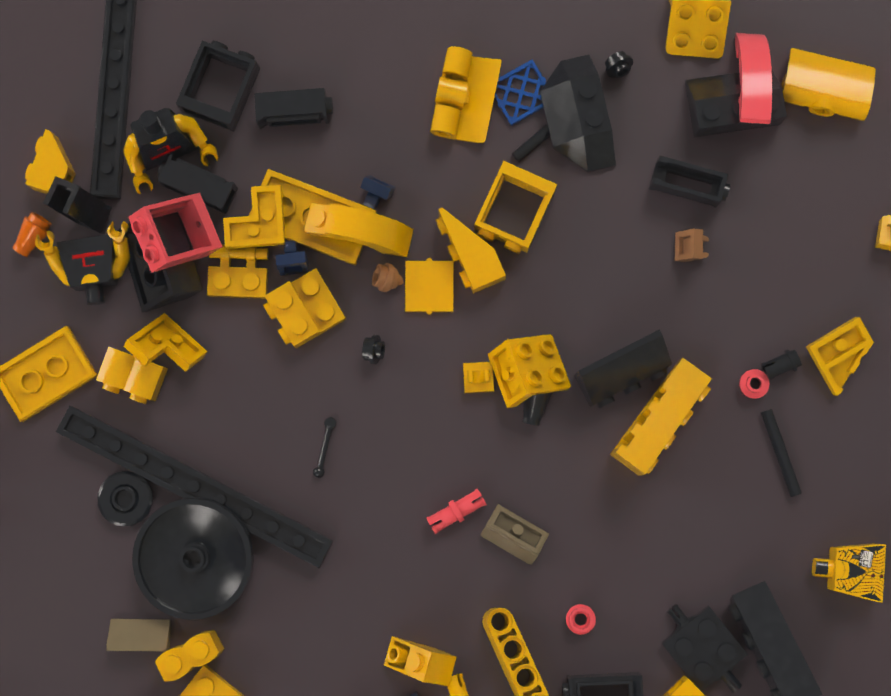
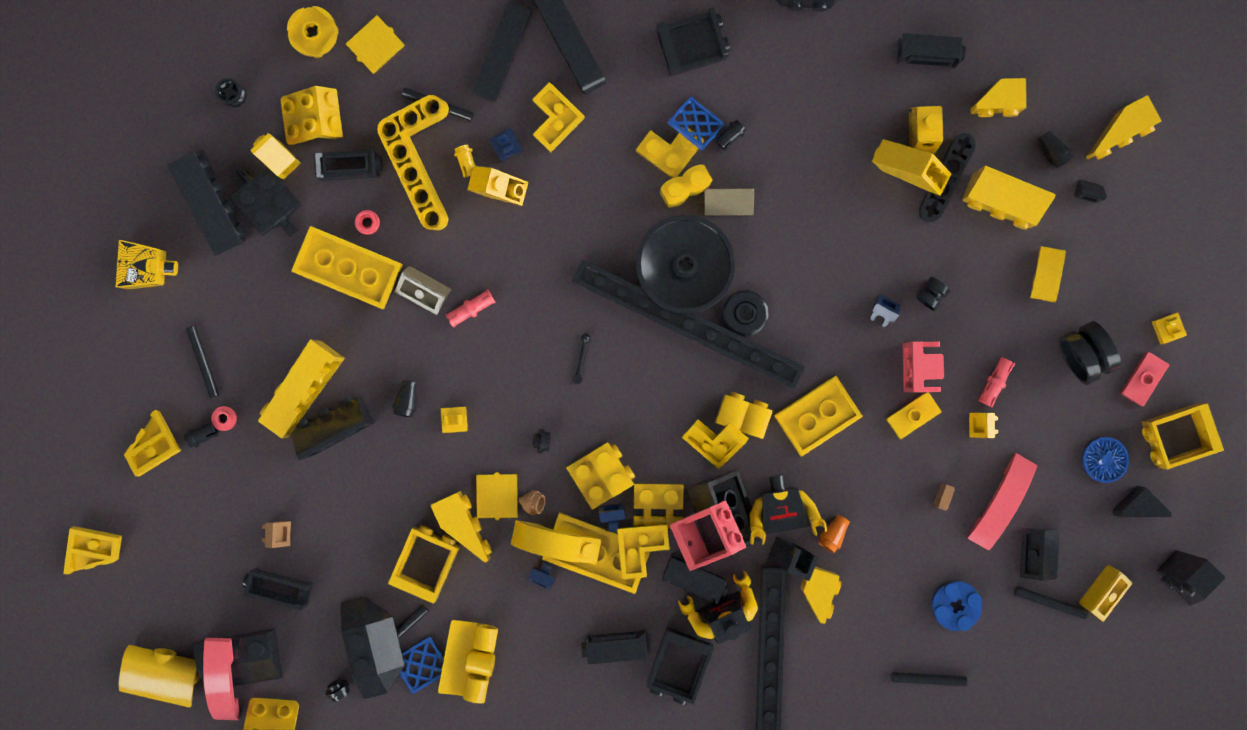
camera: 175 degrees right, 5 degrees up
(528, 368) = (411, 427): yellow bracket -> none
(605, 563) = (346, 267): none -> yellow plate

